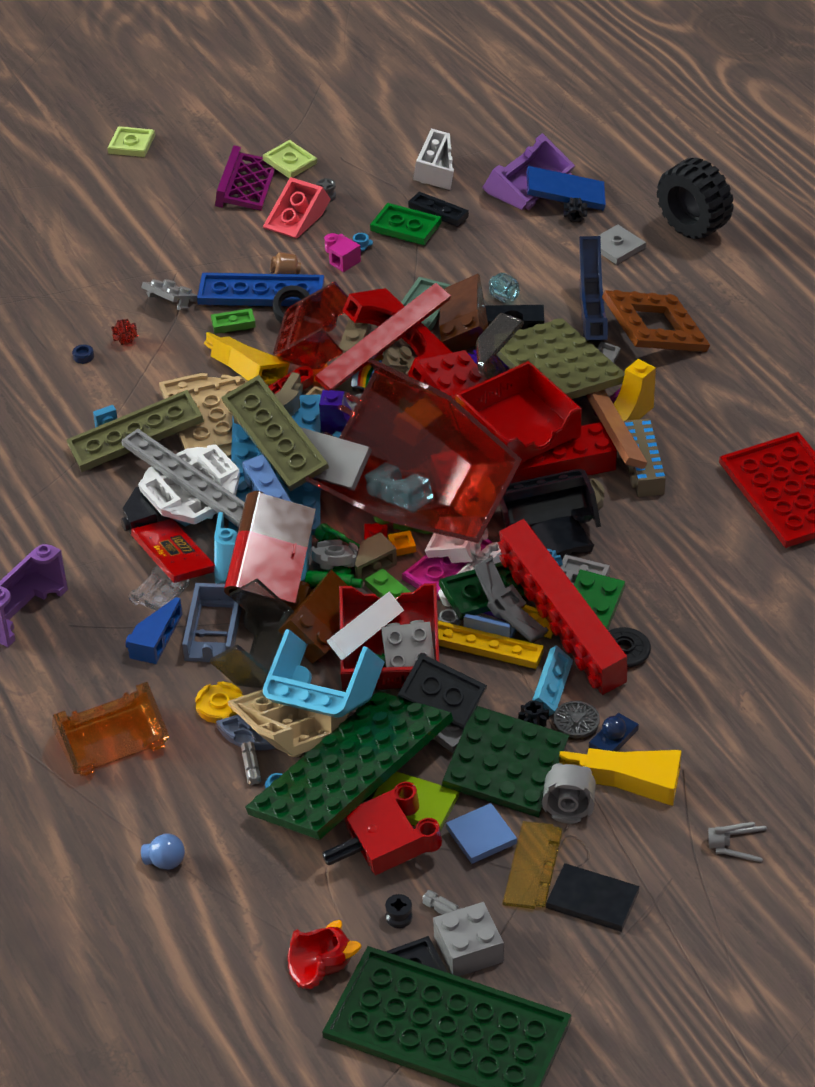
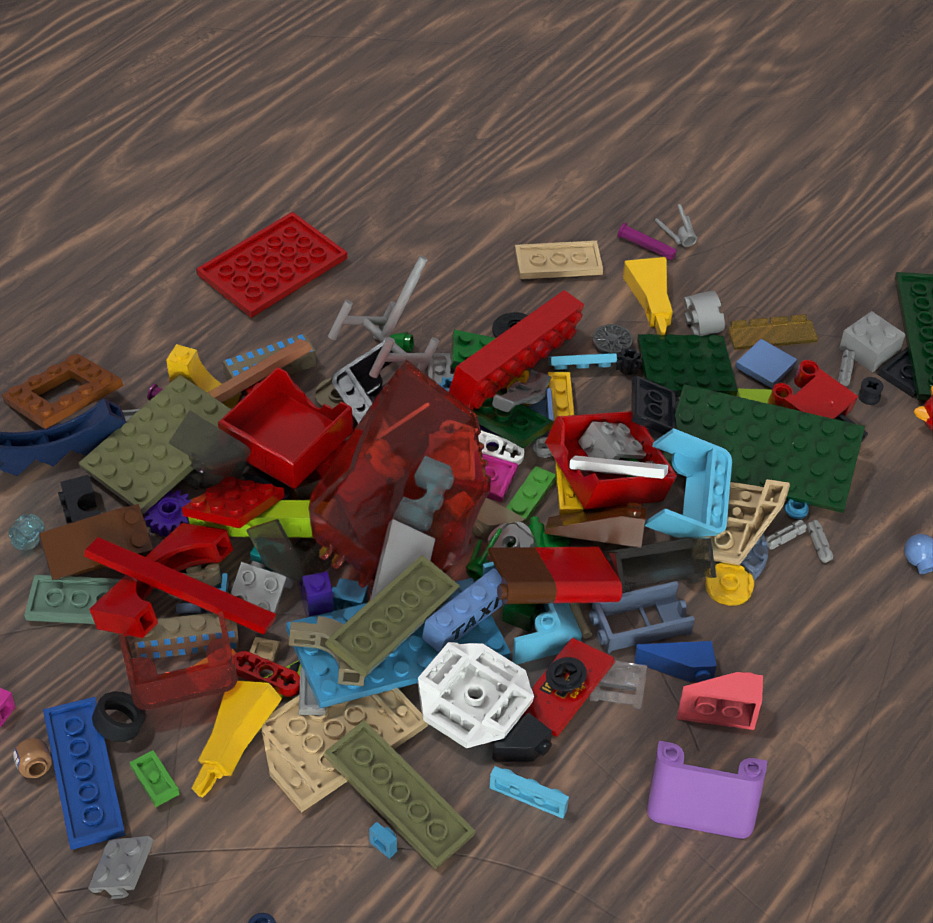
camera: 115 degrees left, 5 degrees up
(87, 636) = (723, 701): none -> coral slope
(92, 504) = (529, 791): none -> medium azure plate
(111, 731) = (816, 651): clear orange windscreen -> none
(124, 332) = (216, 886): clear red gear -> none
(168, 541) = (574, 667): none -> black gear
(185, 475) = (470, 696): light grey tile -> none
(228, 786) = (820, 541): none -> light grey axle
(592, 897) = (780, 291): black tile -> none
(614, 733) = (617, 313): dark blue tile -> none
(625, 510) = (386, 326): none -> light grey piece
(636, 553) = (404, 341): none -> green cone
(718, 710) = (558, 259): none -> tan plate
(723, 798) = (646, 242): none -> magenta axle

